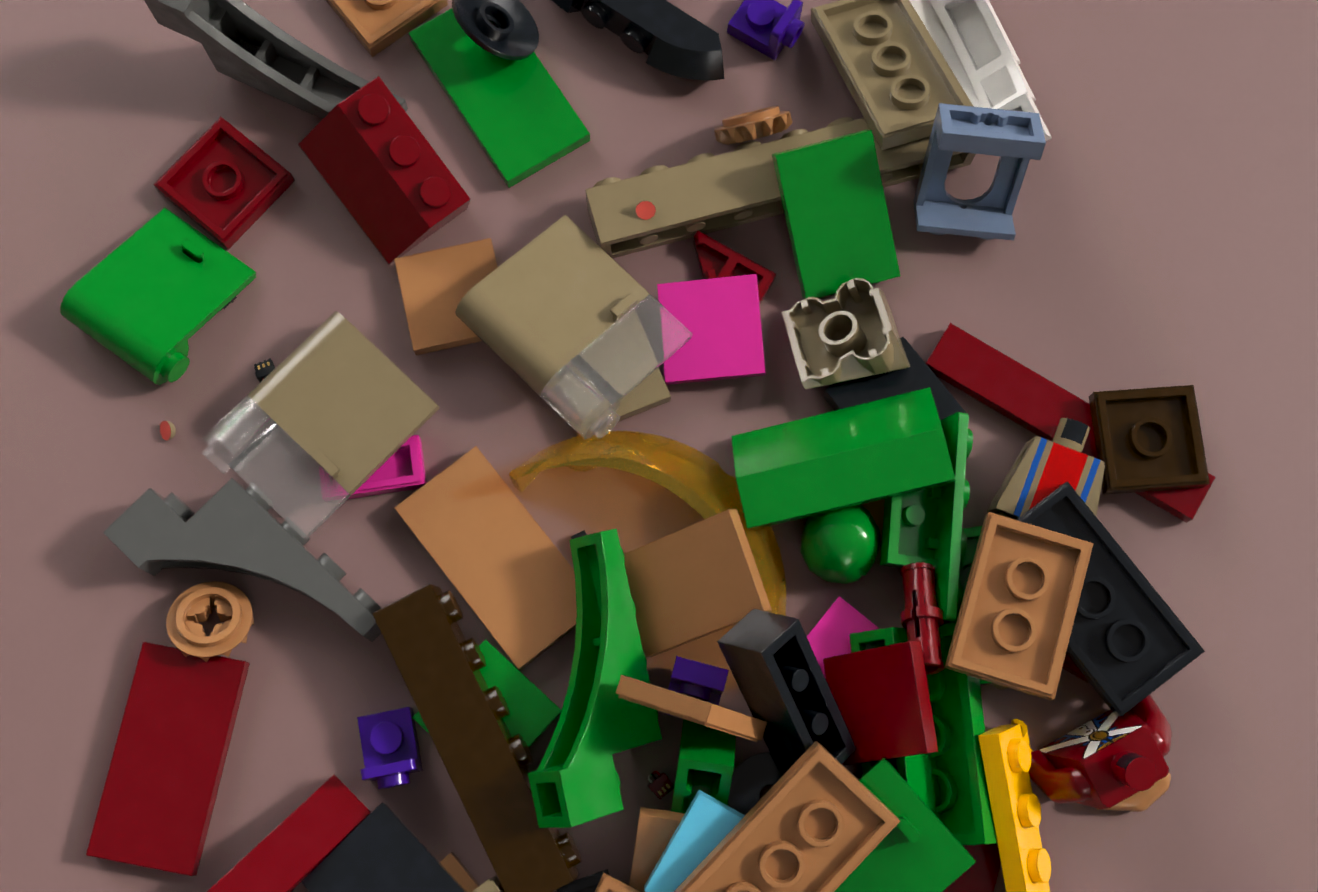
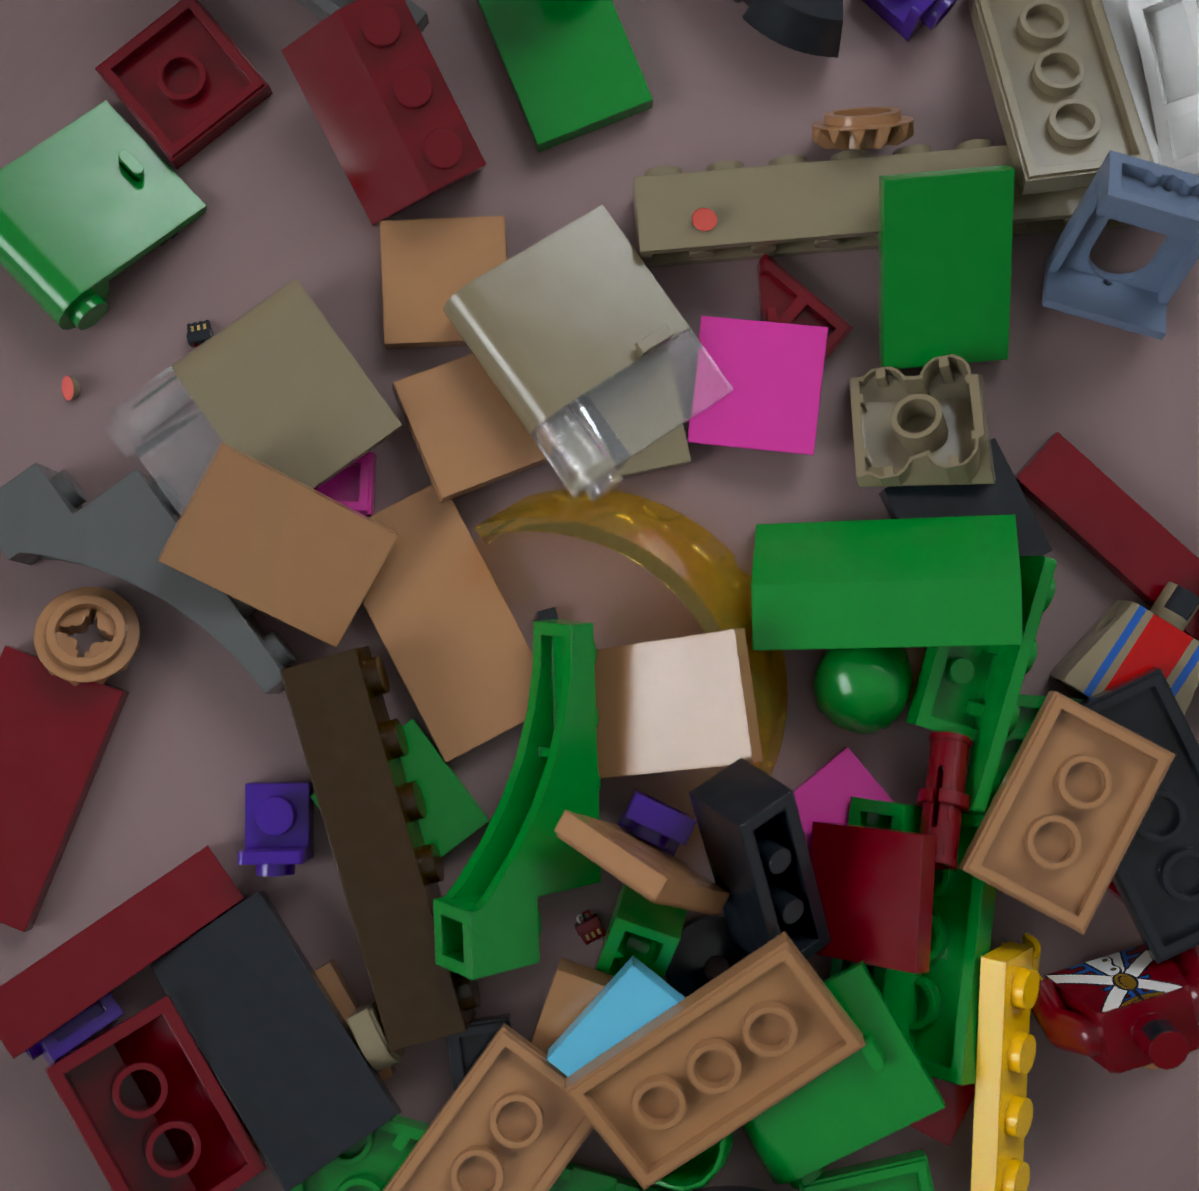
camera: 10 degrees right, 10 degrees up
(355, 516) = (278, 545): none -> medium nougat tile
(488, 402) = (464, 428): none -> medium nougat tile

